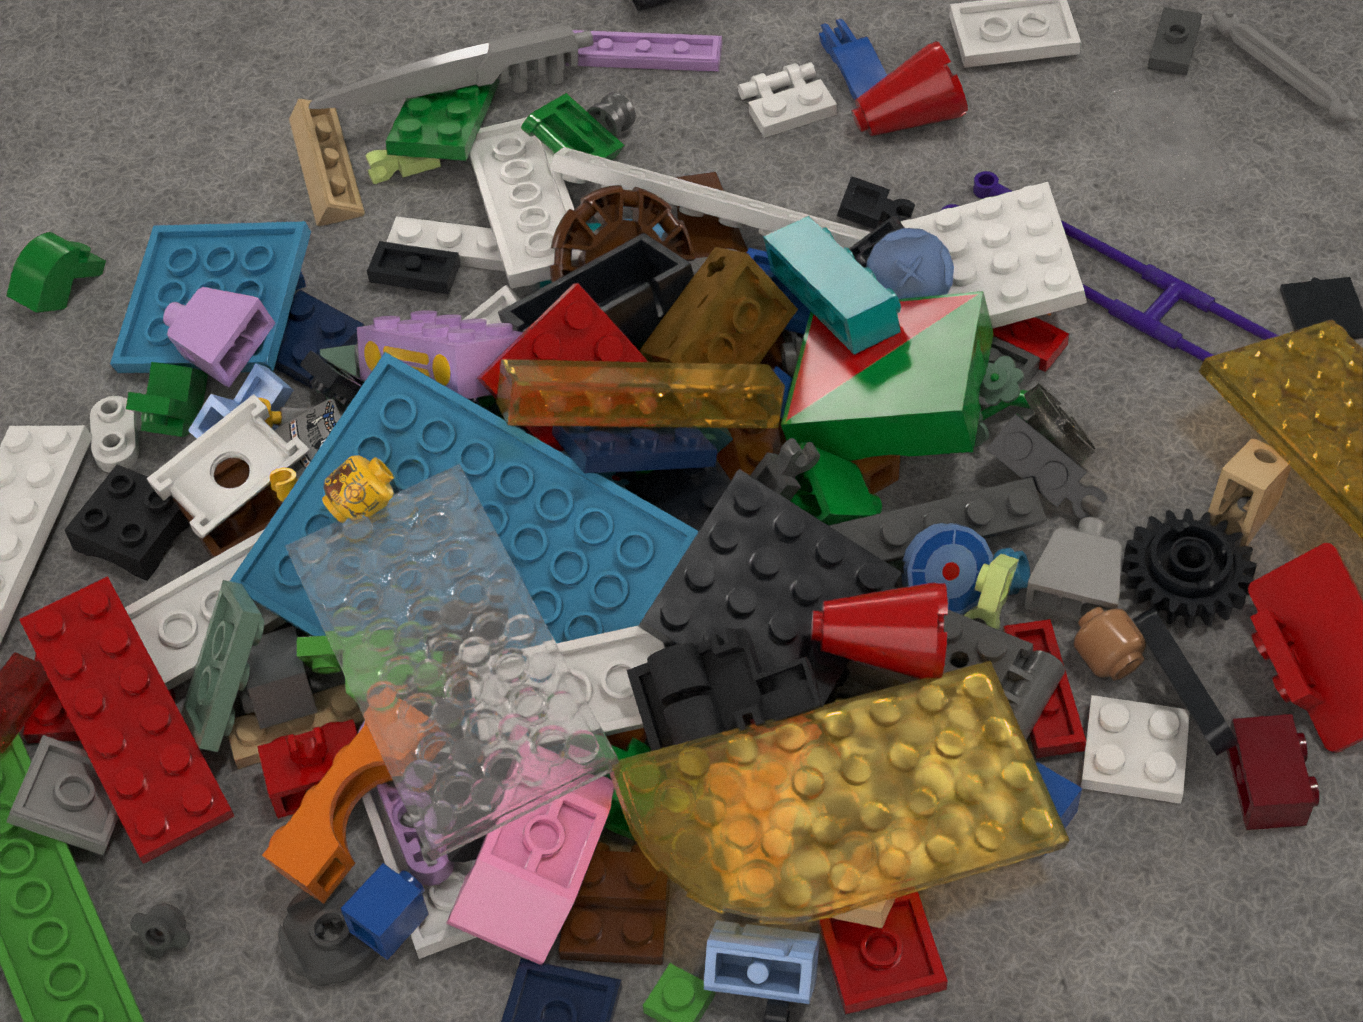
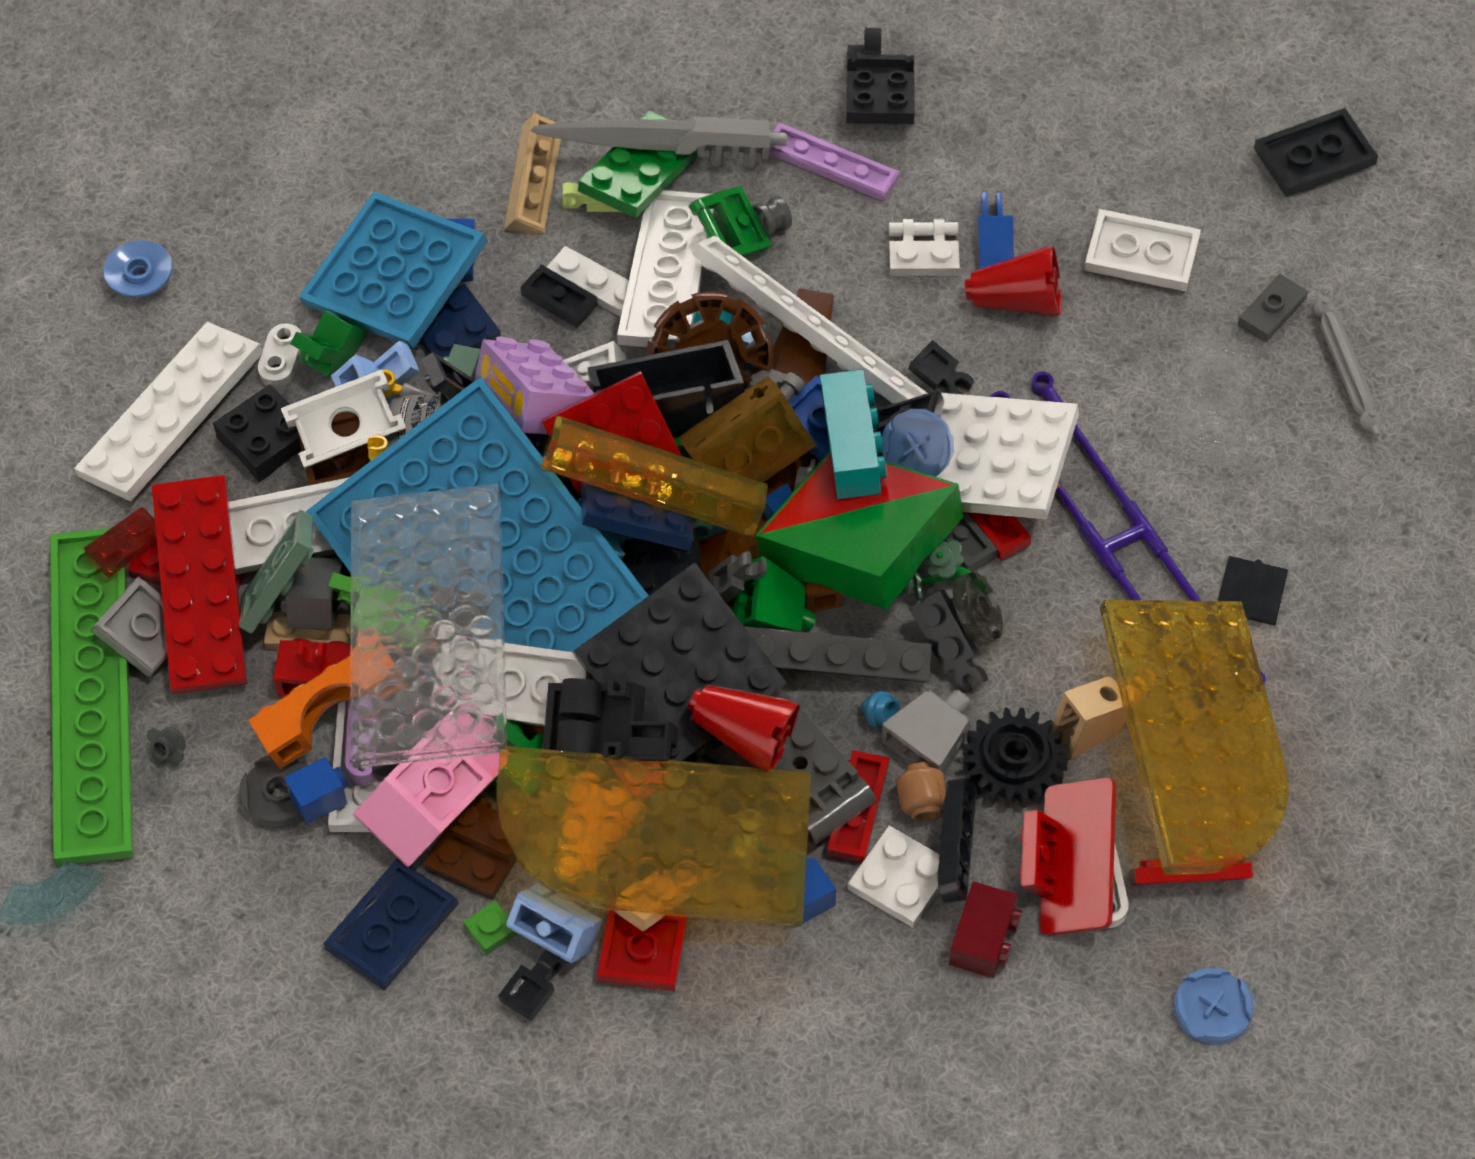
camera: 20 degrees right, 5 degrees up
(47, 270) = (280, 202): green brick -> none
(218, 331) = (382, 304): lavender torso -> none
(358, 488) = (418, 476): yellow head -> none
(948, 556) = (831, 691): tile -> none
(994, 584) = (856, 720): yellowish green plate -> none

